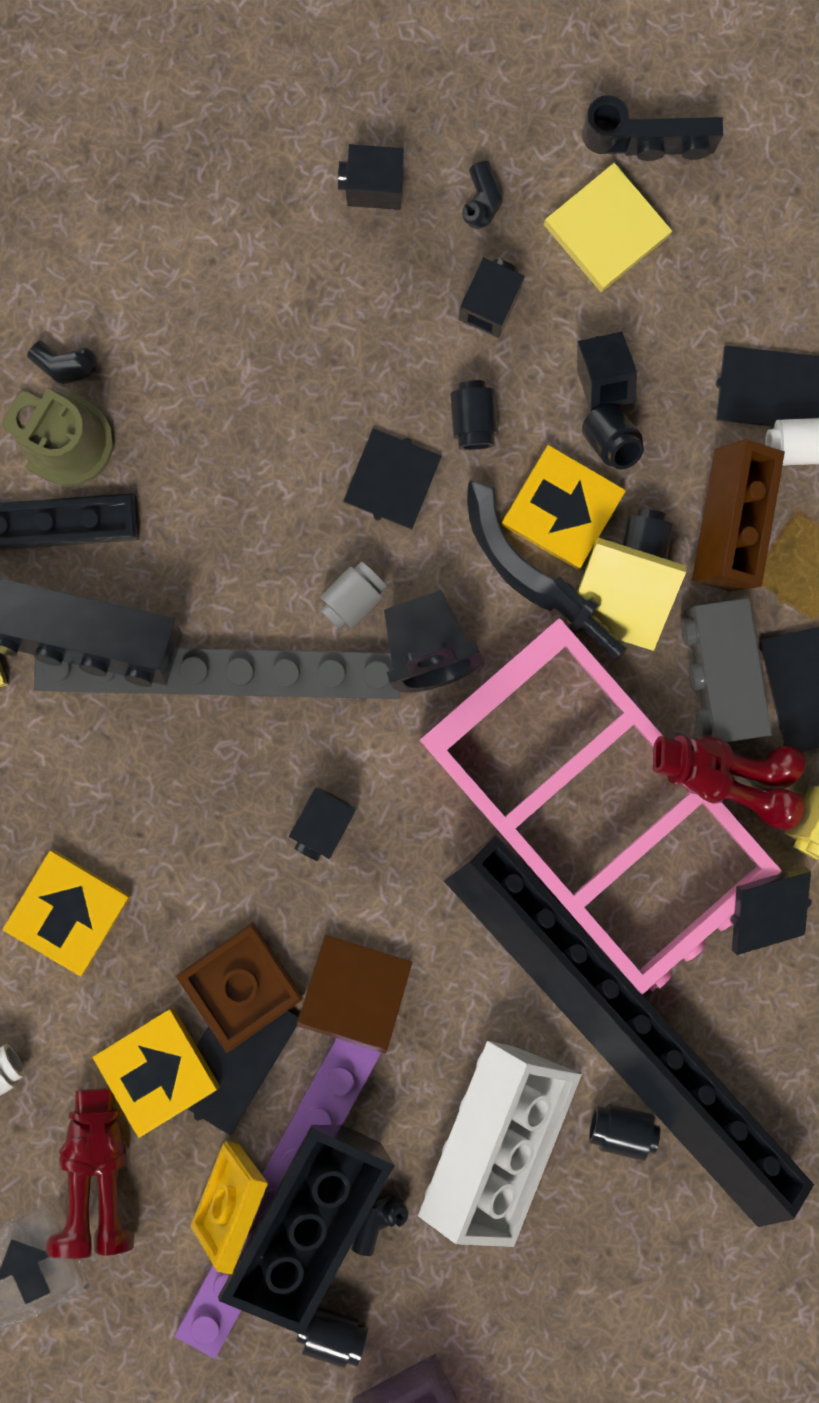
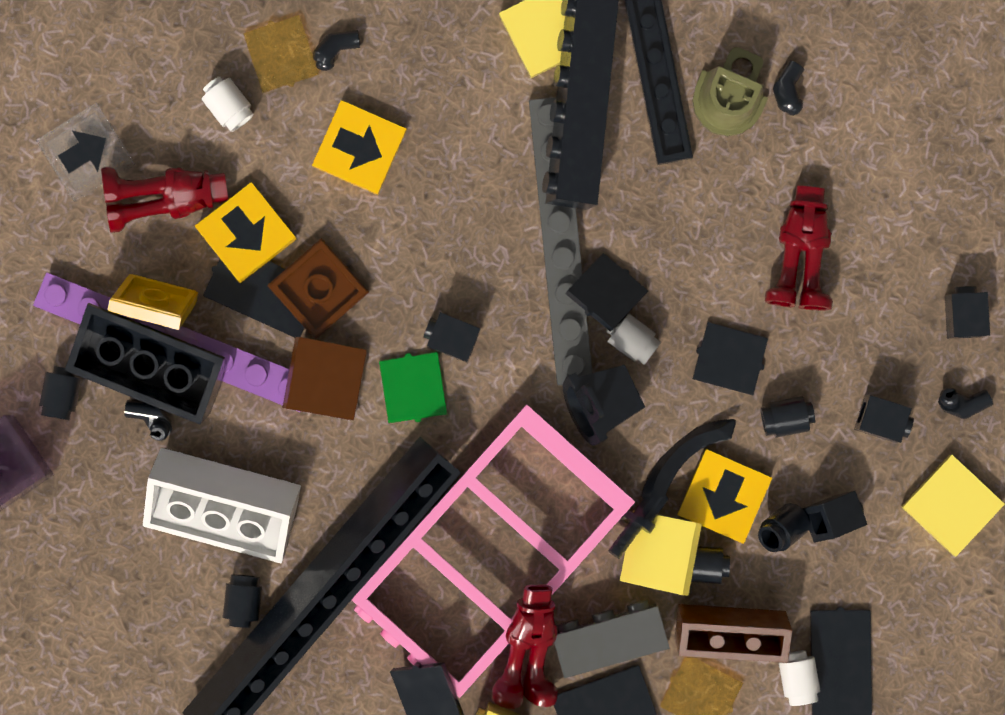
camera: 85 degrees right, 0 degrees up
(245, 364) = (804, 231): none -> dark red piece
(289, 621) = (606, 292): none -> black piece
(380, 881) = (413, 387): none -> green piece

